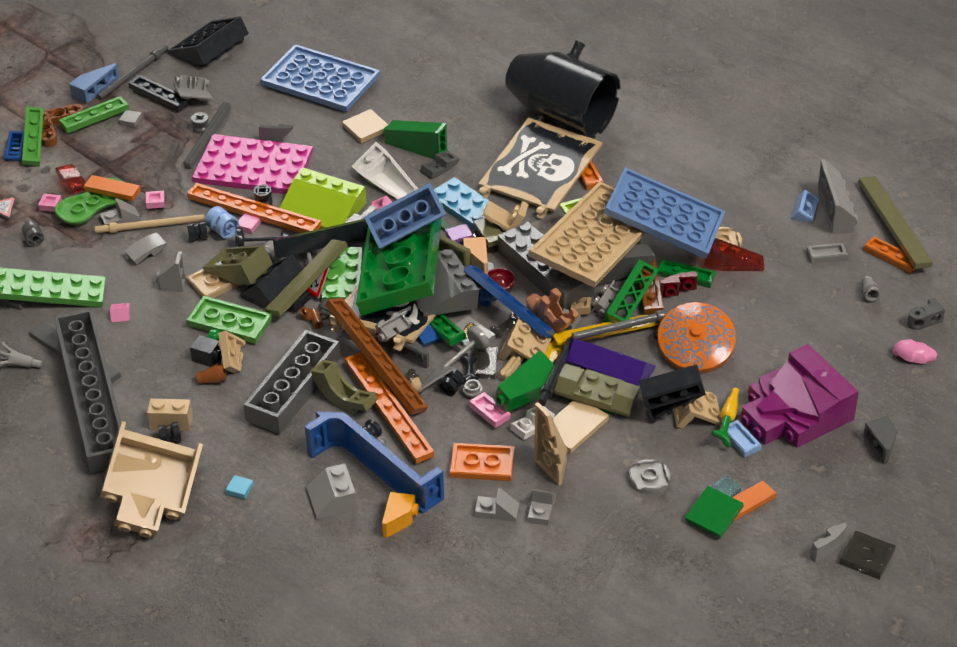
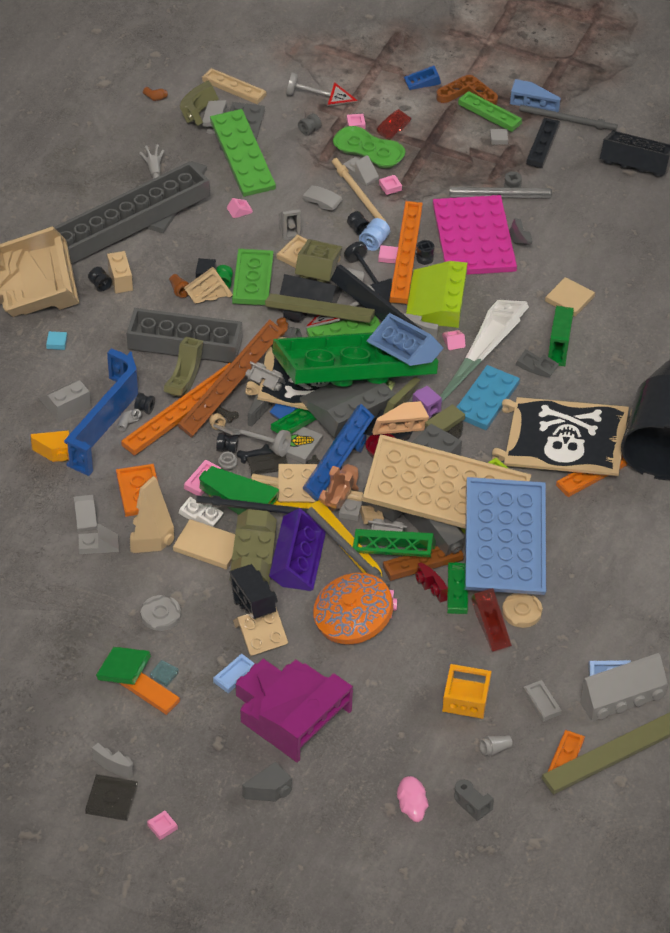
camera: 70 degrees right, 5 degrees up
(32, 136) = (433, 81): bright green plate -> none
(112, 188) = (386, 151): orange tile -> none
(196, 90) = (554, 161): light grey hinge -> none
(320, 77) = (625, 244): medium blue plate -> none
(503, 218) = (467, 422): tan bracket -> none
(727, 415) = (256, 654): piece -> none
(815, 289) = (466, 696): none -> light orange piece
(908, 524) = (162, 825): none -> bright pink tile

